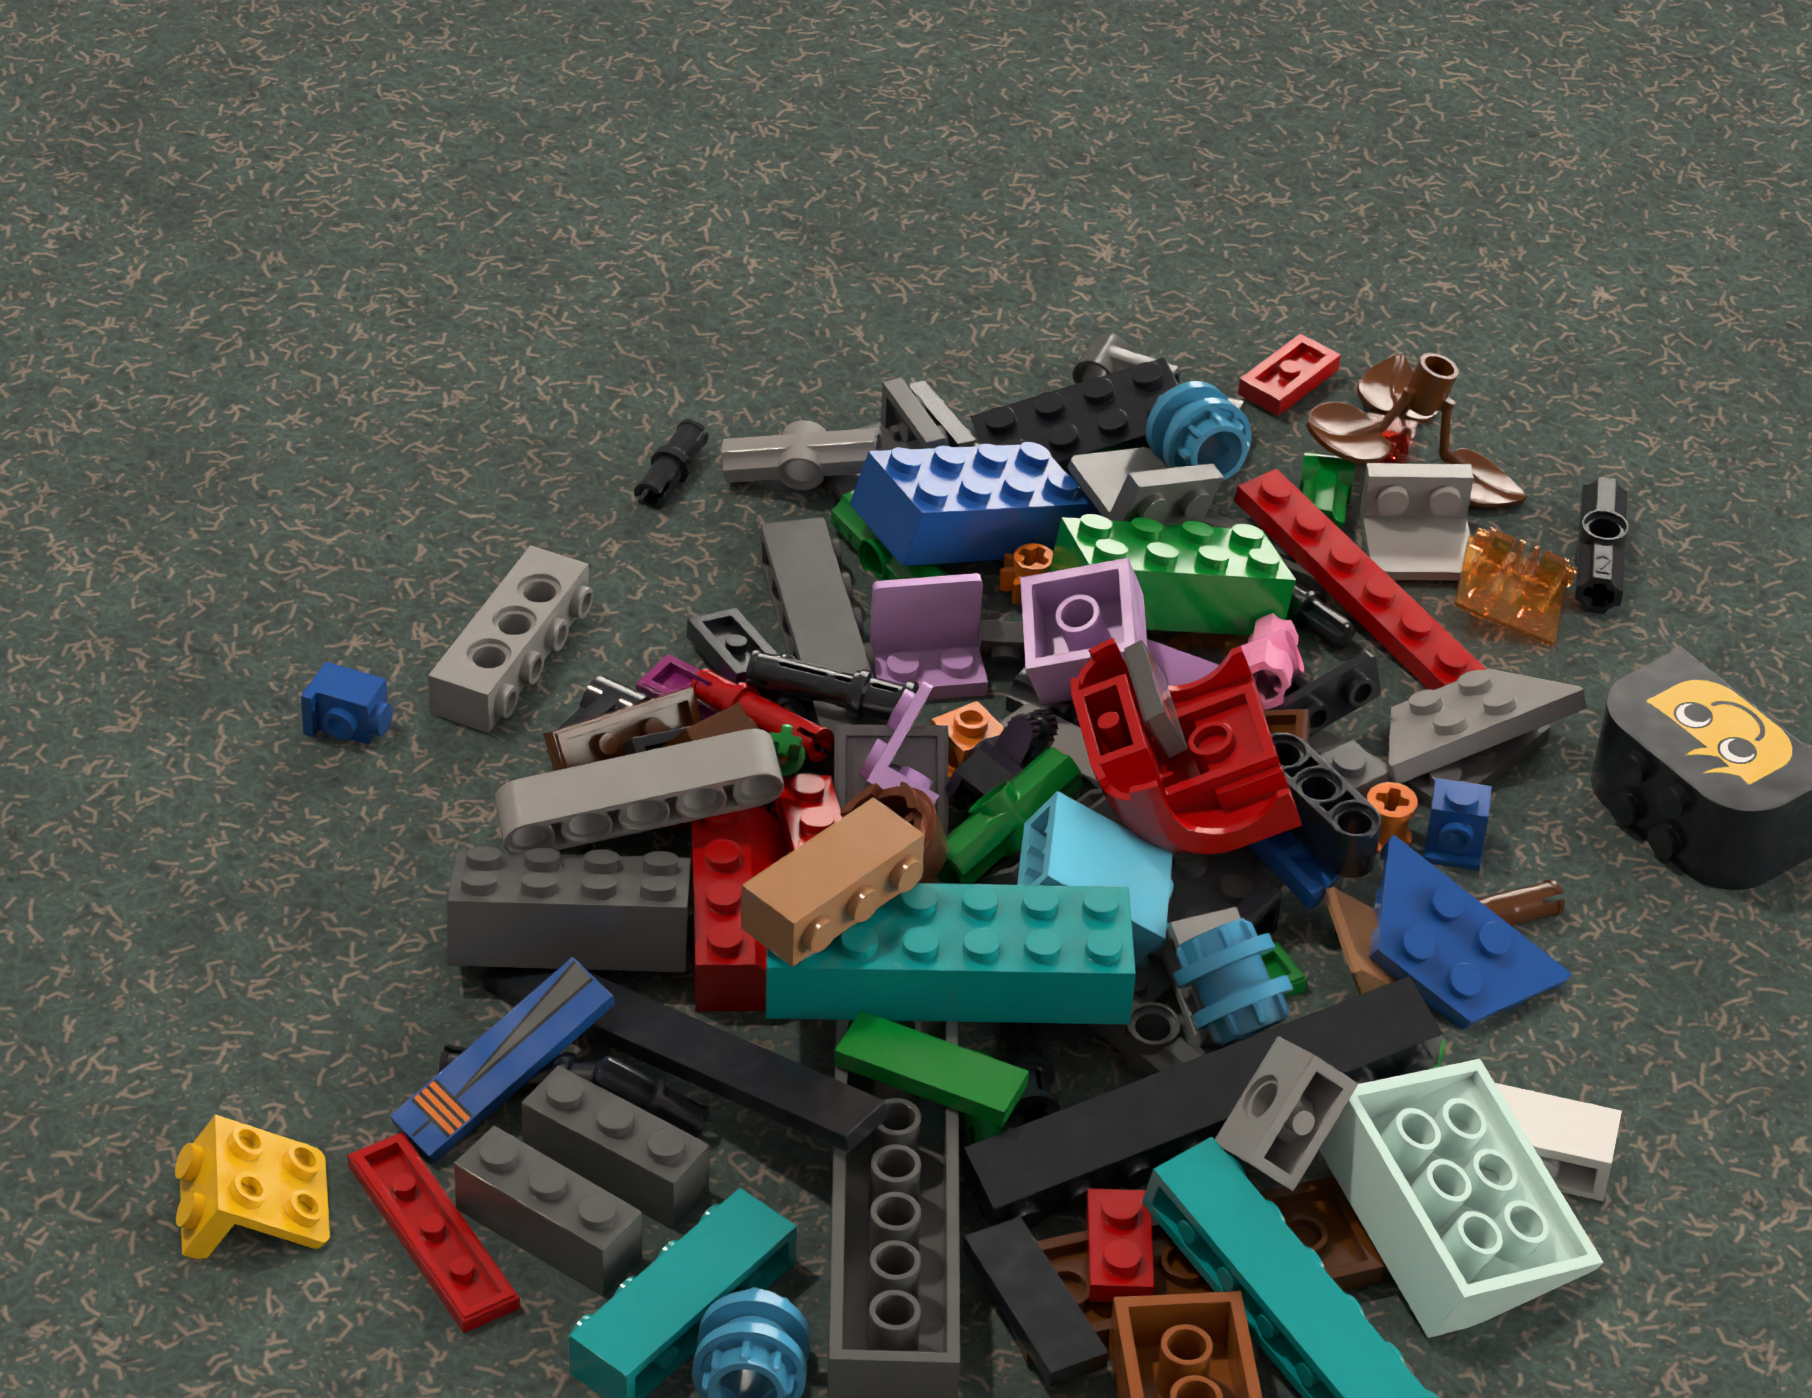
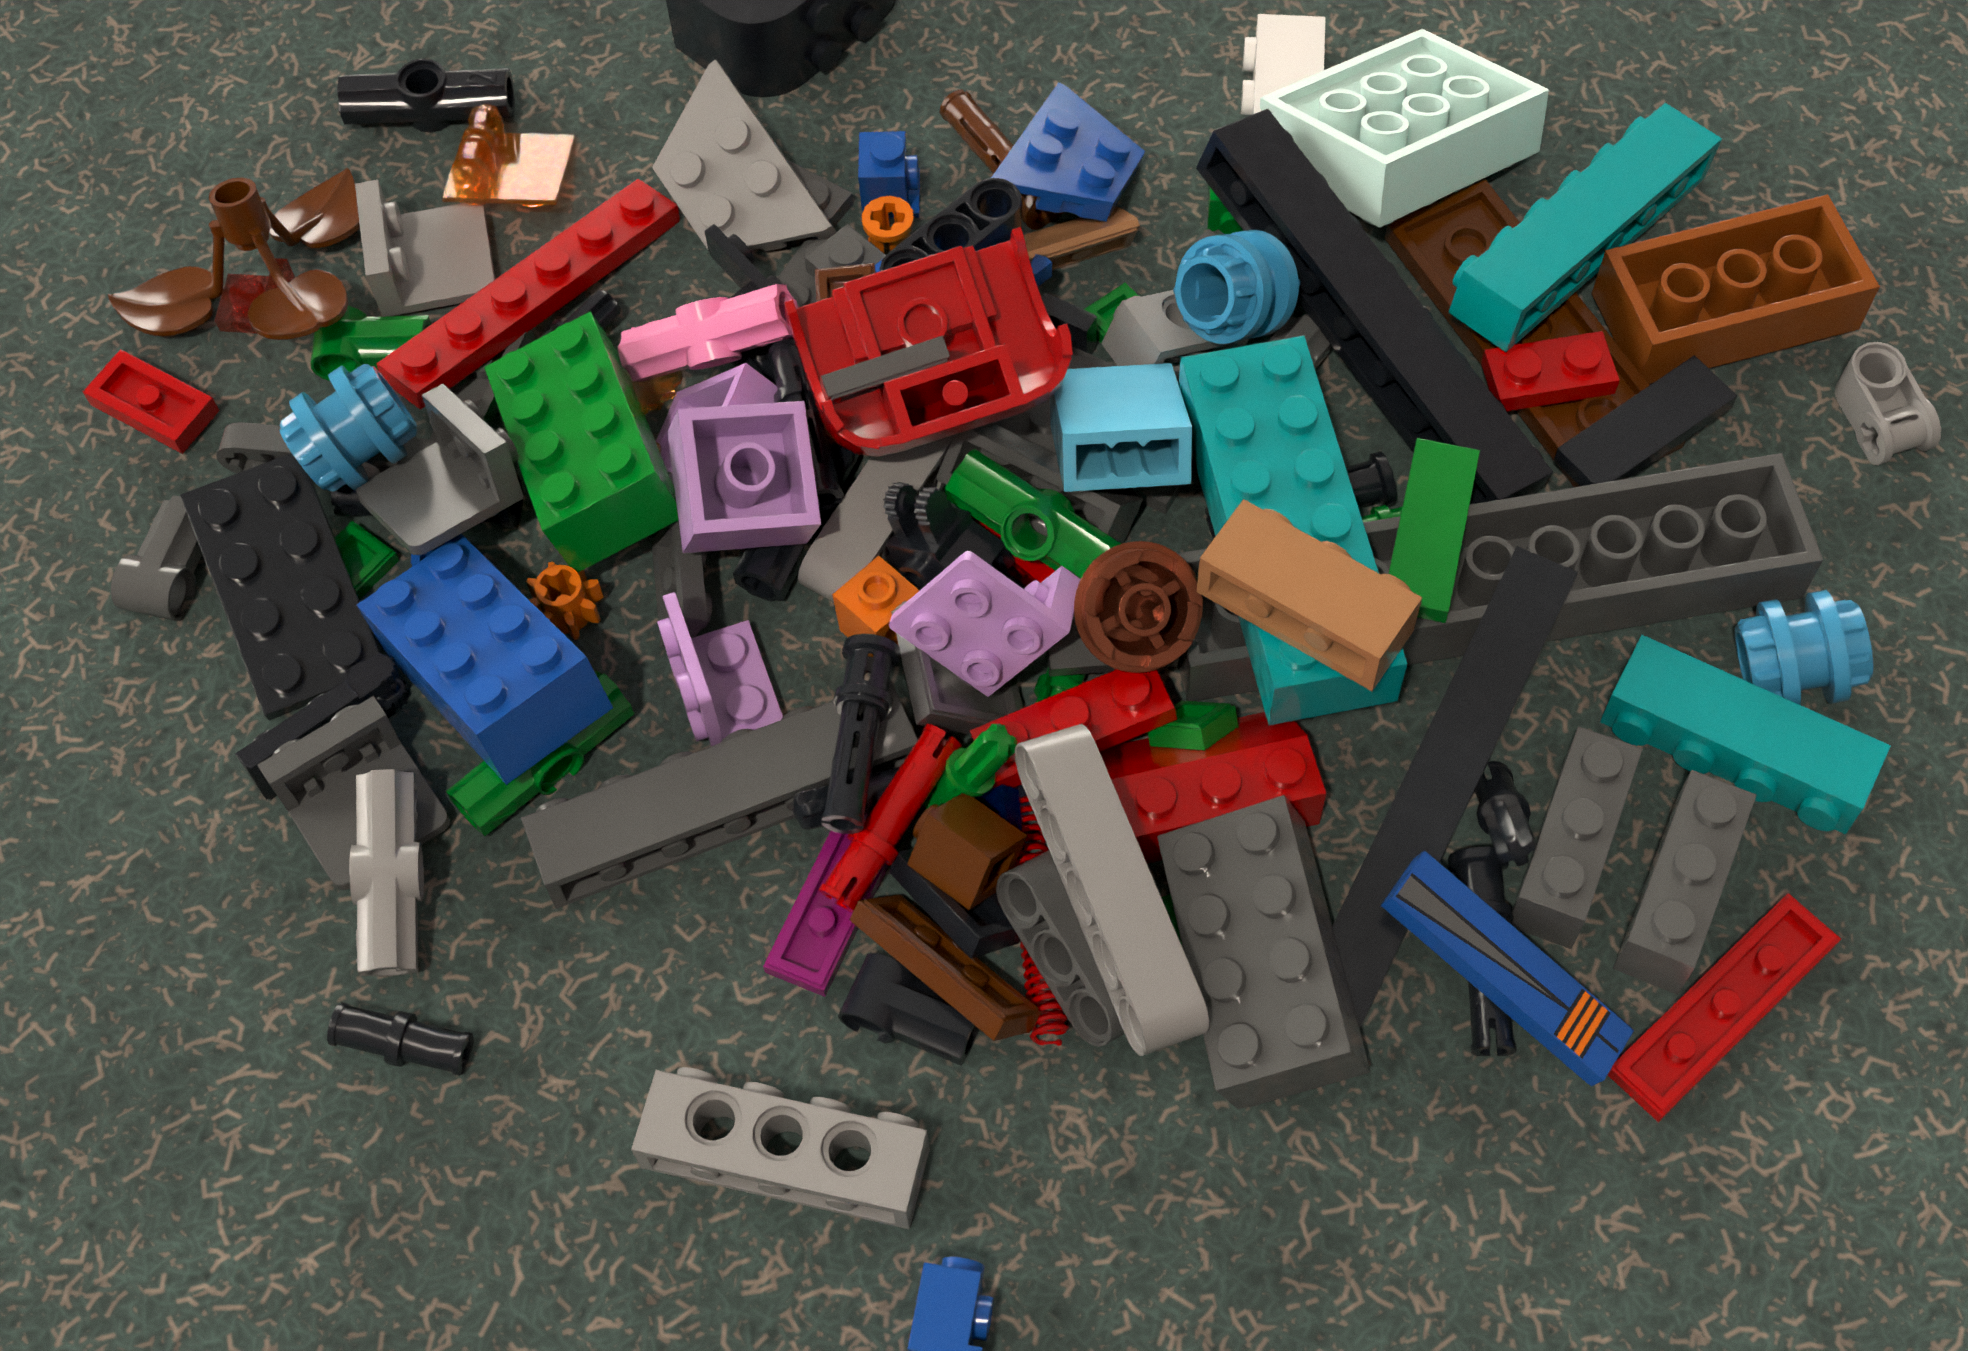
camera: 95 degrees left, 20 degrees up
(250, 1181) = (1764, 1201): yellow bracket -> none
(726, 642) = (750, 886): black plate -> none
(1286, 1113) = (1444, 235): light grey brick -> none

